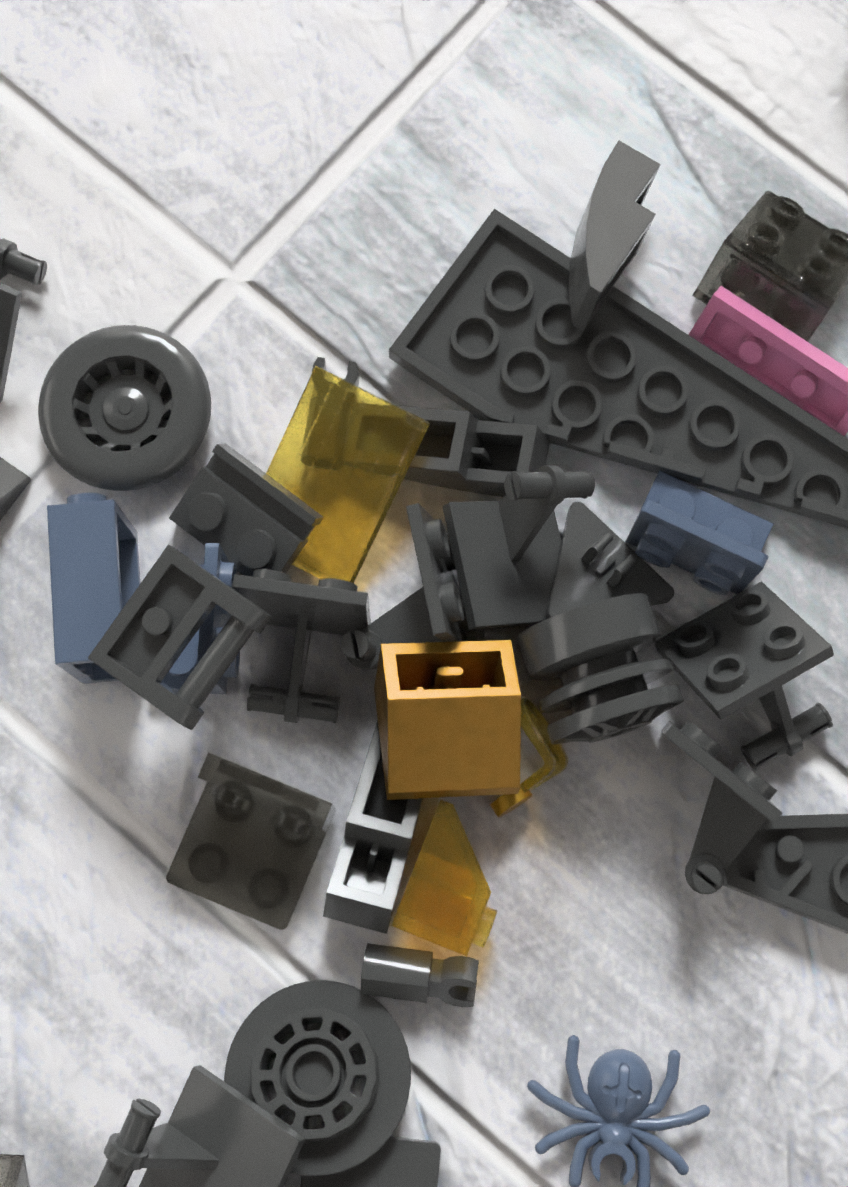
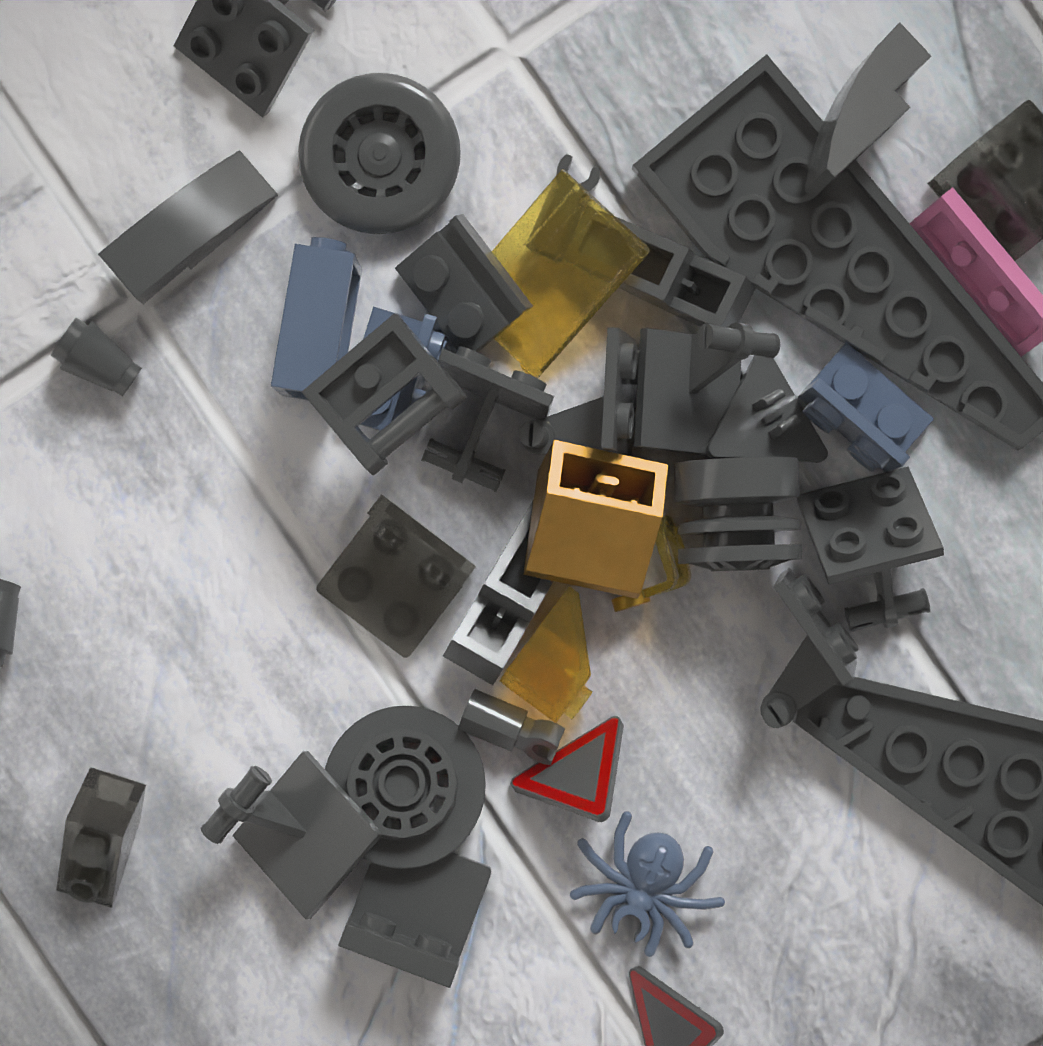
camera: 15 degrees right, 10 degrees up
(509, 1007) = (580, 773): none -> piece

